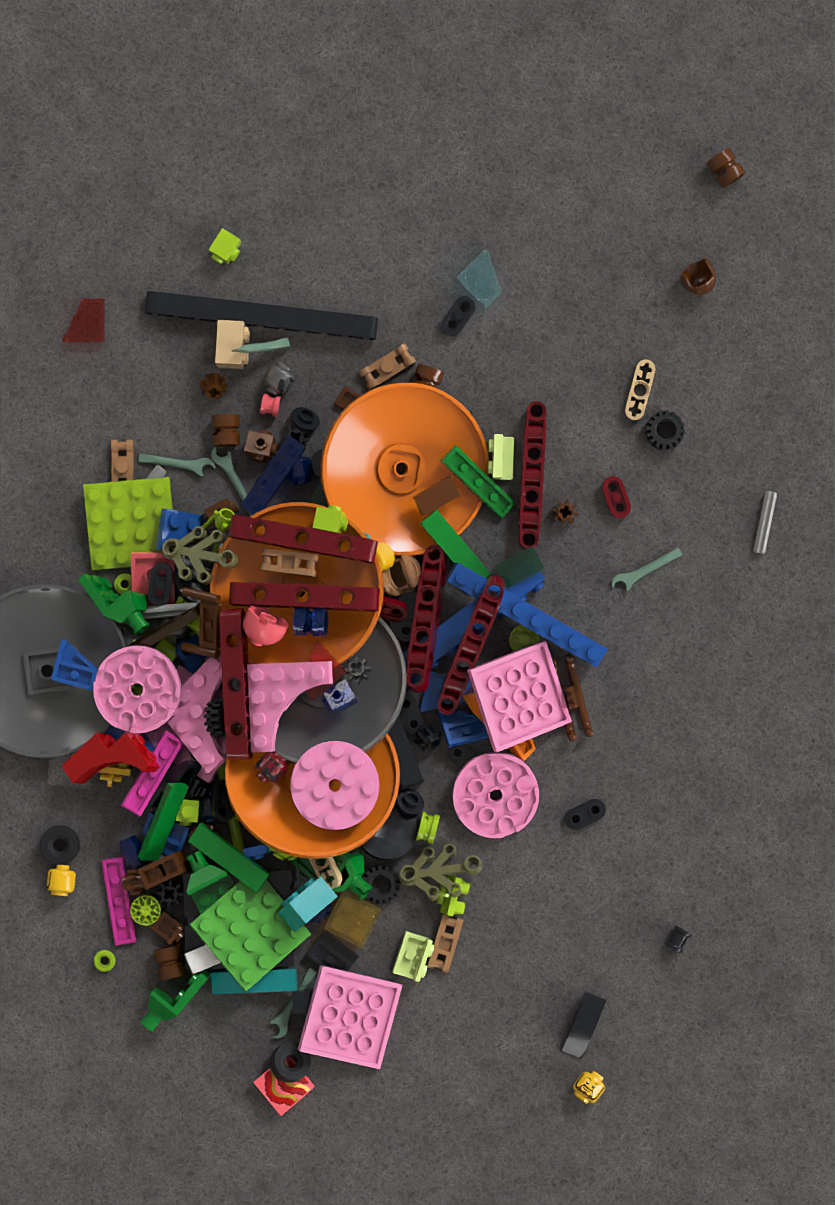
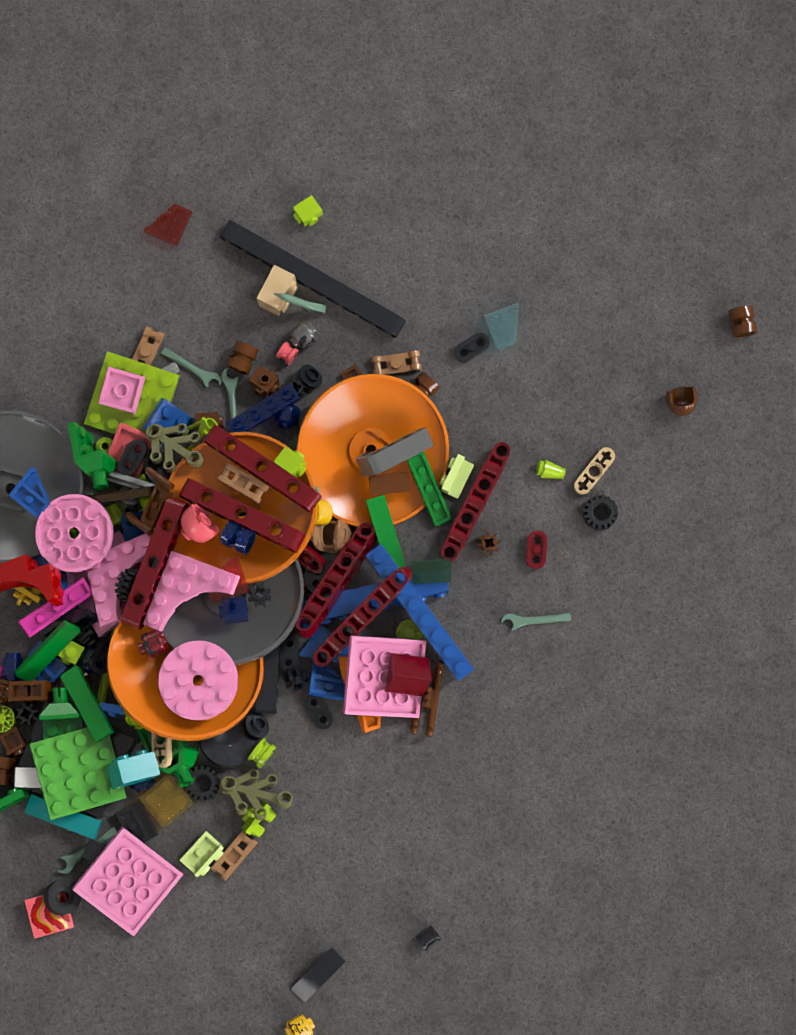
camera: 30 degrees right, 5 degrees down
(117, 519) = (121, 390): none -> bright pink plate
(213, 385) = (248, 318): reddish brown gear -> none
(430, 462) = (394, 453): none -> dark grey beam
(490, 773) = (325, 770): bright pink plate -> none
(543, 683) = (408, 674): none -> dark red slope
(585, 814) = (396, 799): black plate -> none
(593, 409) = (547, 469): none -> lime cone
(765, 522) = (650, 624): light grey axle -> none

